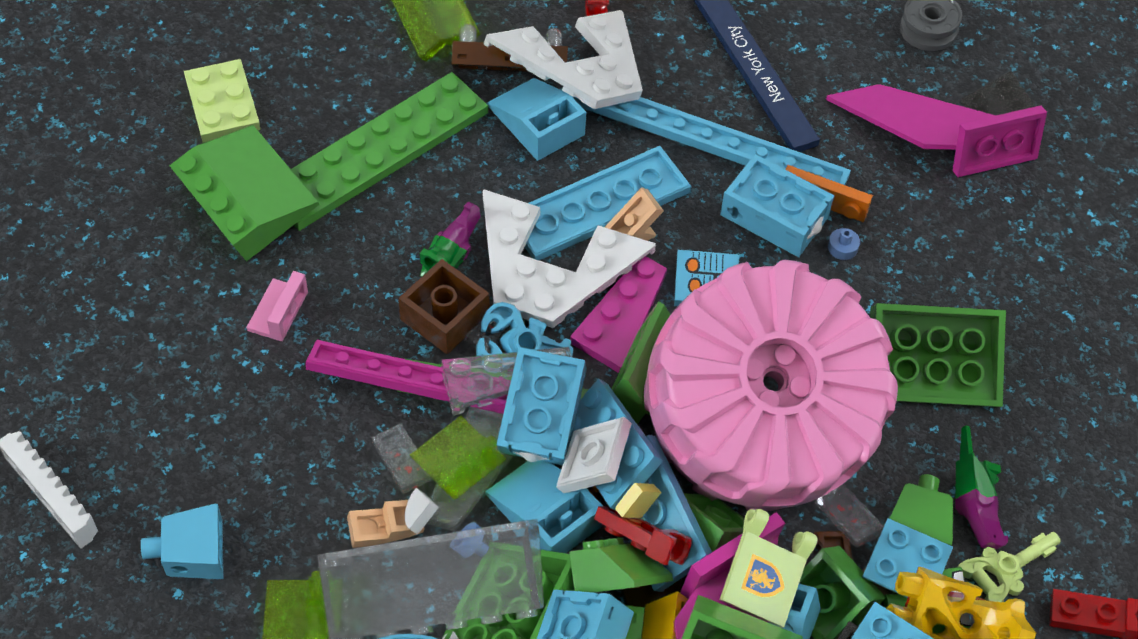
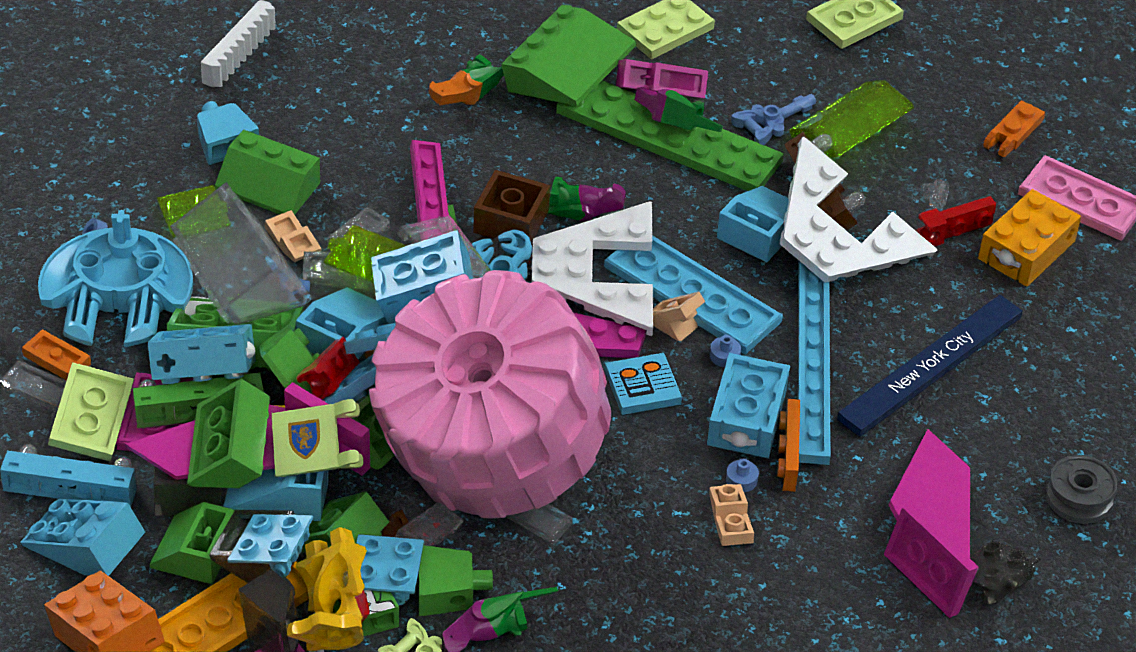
camera: 70 degrees right, 10 degrees down
(229, 283) = (467, 84): none -> animal
(279, 307) = (468, 121): bright pink panel -> none
(282, 518) = (269, 173): none -> bright green slope
(309, 127) = (658, 76): none -> dark pink slope
(373, 126) = (674, 109): none -> green animal
(395, 66) = (770, 117): none -> medium blue piece
(419, 510) = (304, 245): white tile -> none
(594, 455) = (375, 311): white tile -> none
(637, 500) = (355, 354): light yellow tile -> none
(687, 204) = (721, 348): none -> medium blue tile
(882, 267) = (731, 514): none -> light nougat slope
(945, 353) = (638, 562): bright green slope -> none

